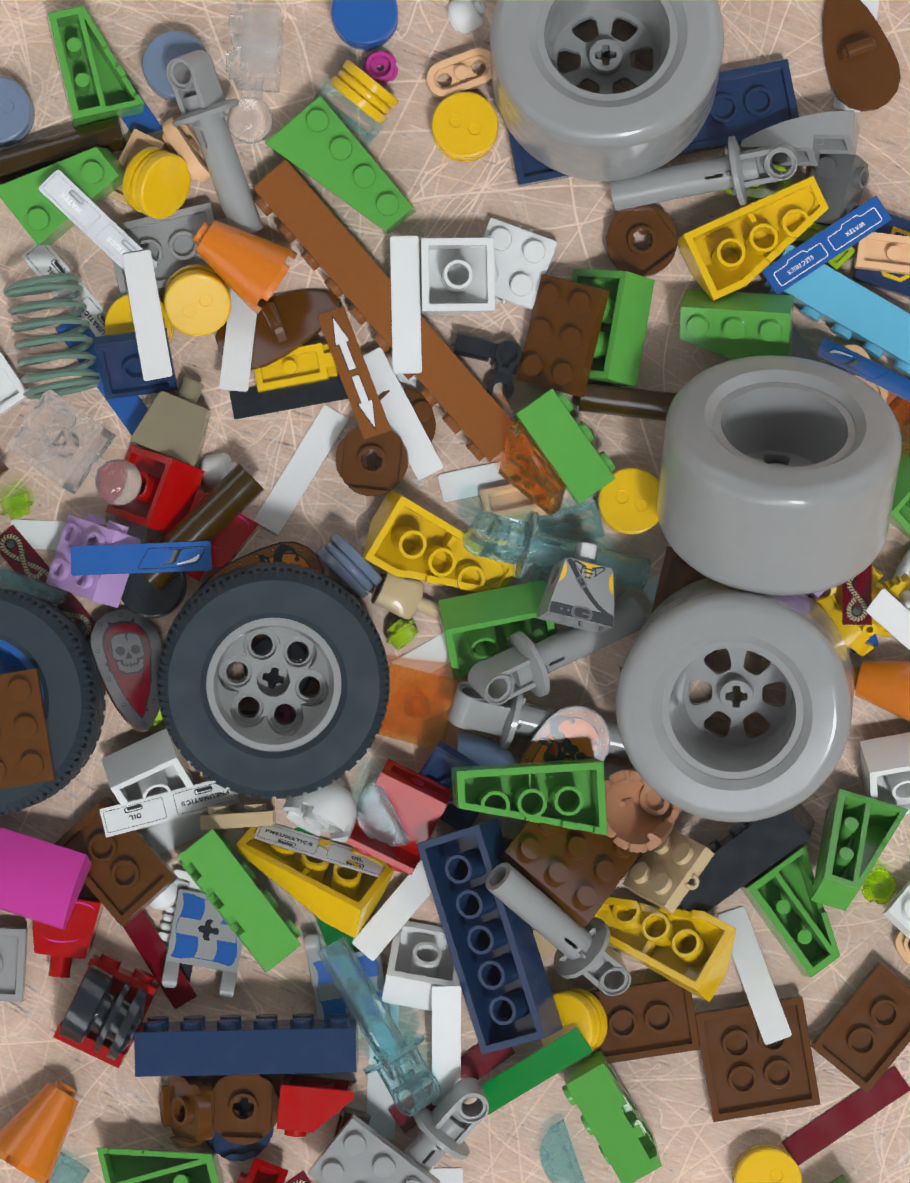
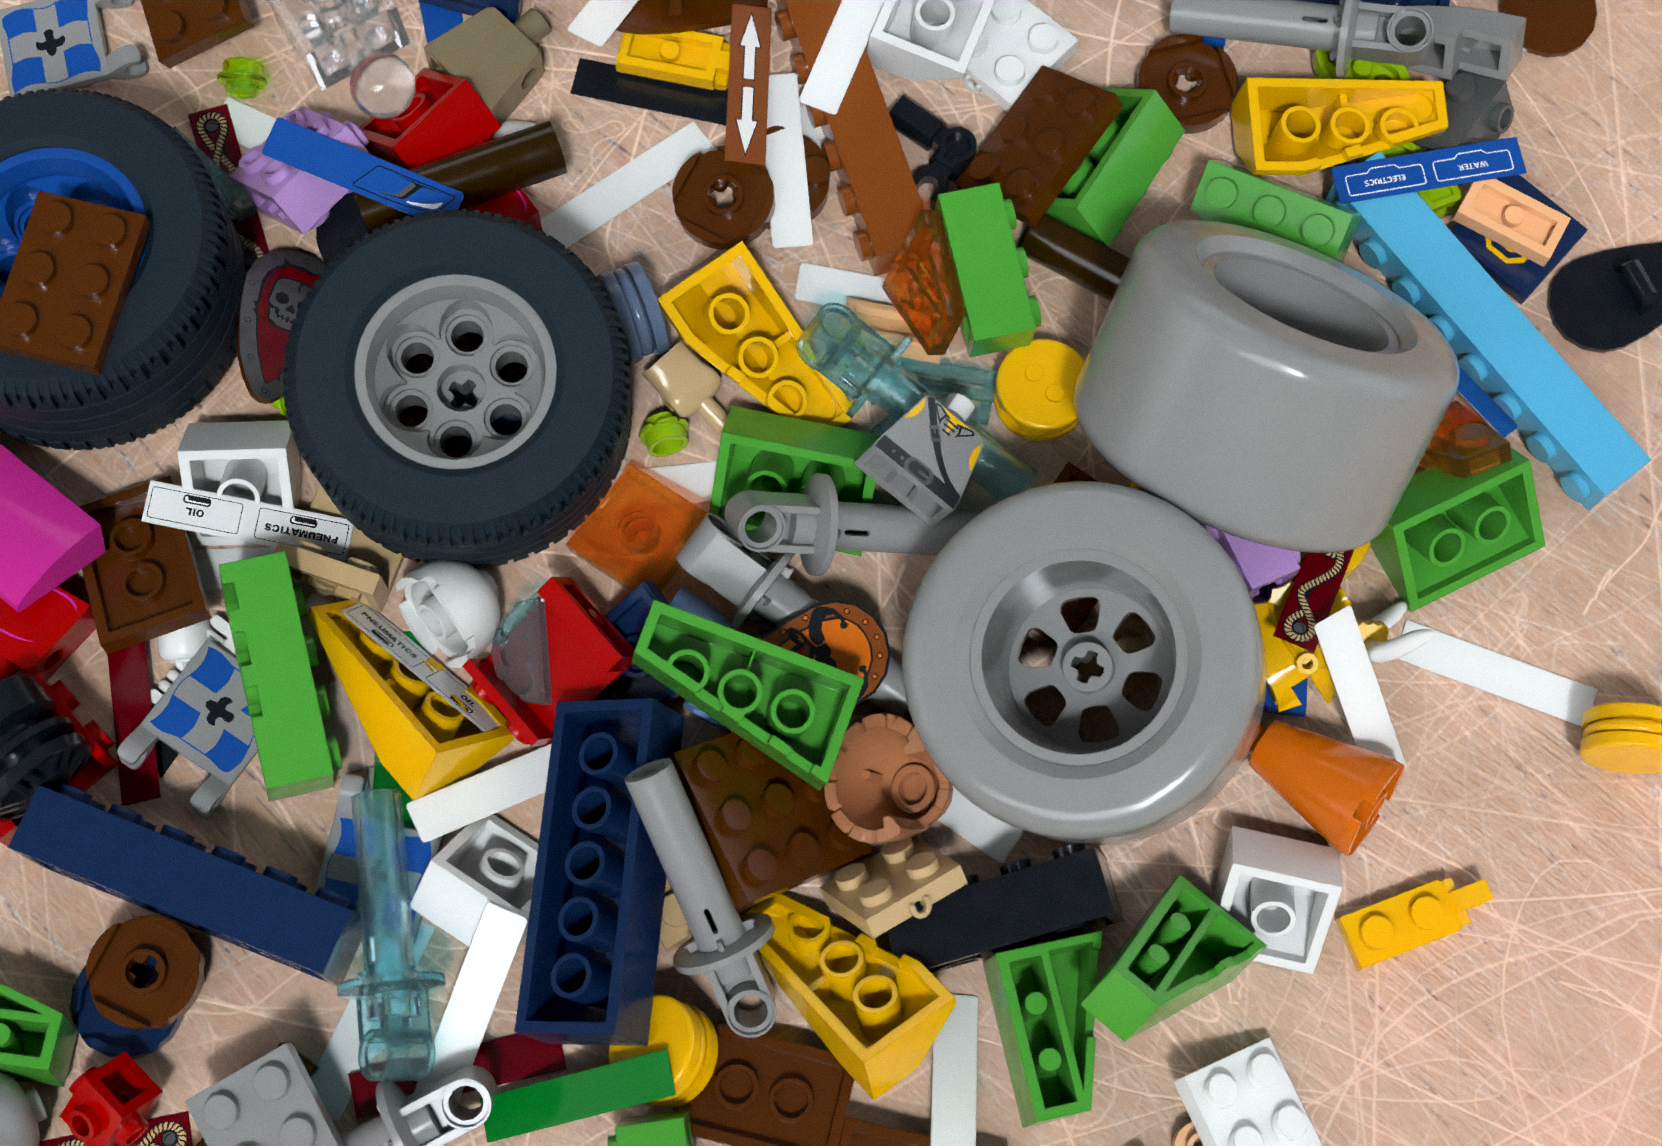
camera: 20 degrees right, 15 degrees down
(187, 1110) = (63, 942): reddish brown plate -> none
(311, 1102) = (237, 1005): red slope -> none
(888, 886) = (1196, 1046): clear neon green plate -> none

